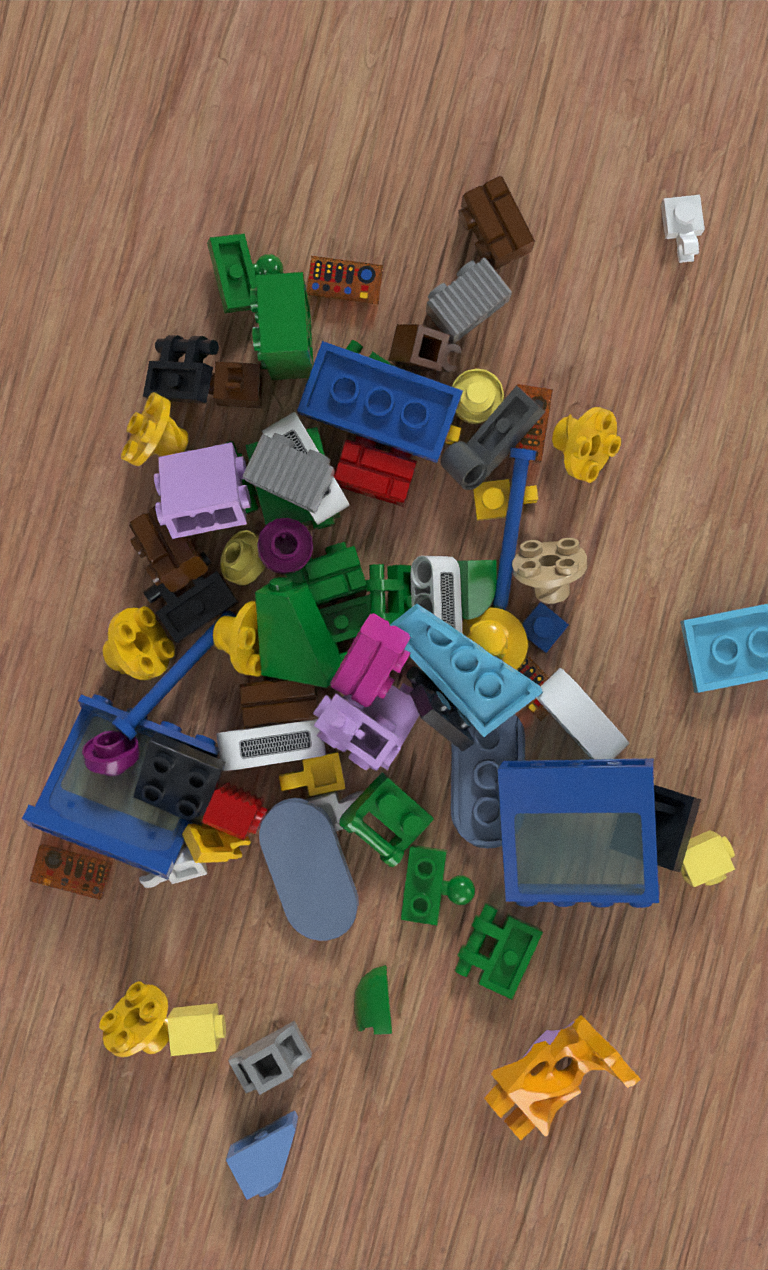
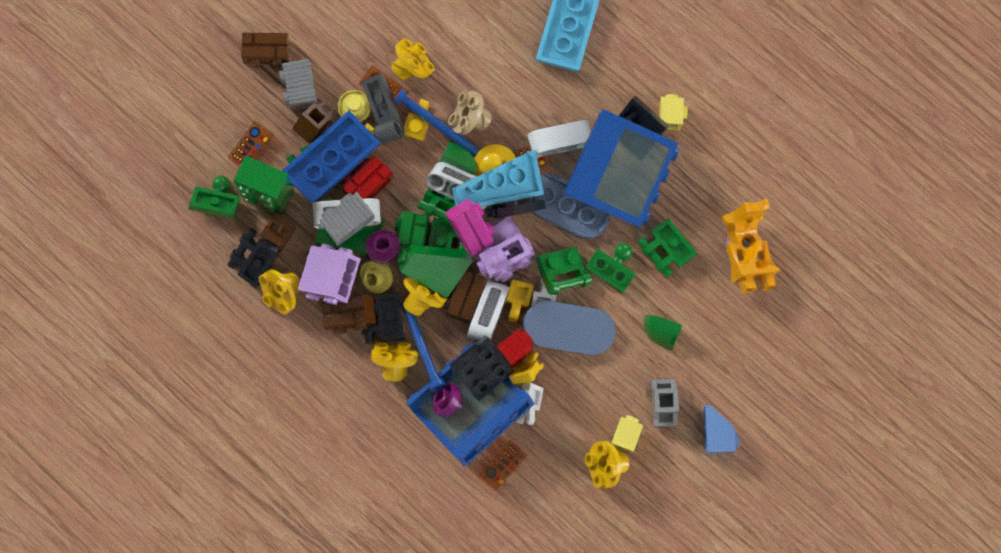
camera: 65 degrees left, 10 degrees down
(543, 627) = (501, 134): blue plate -> none

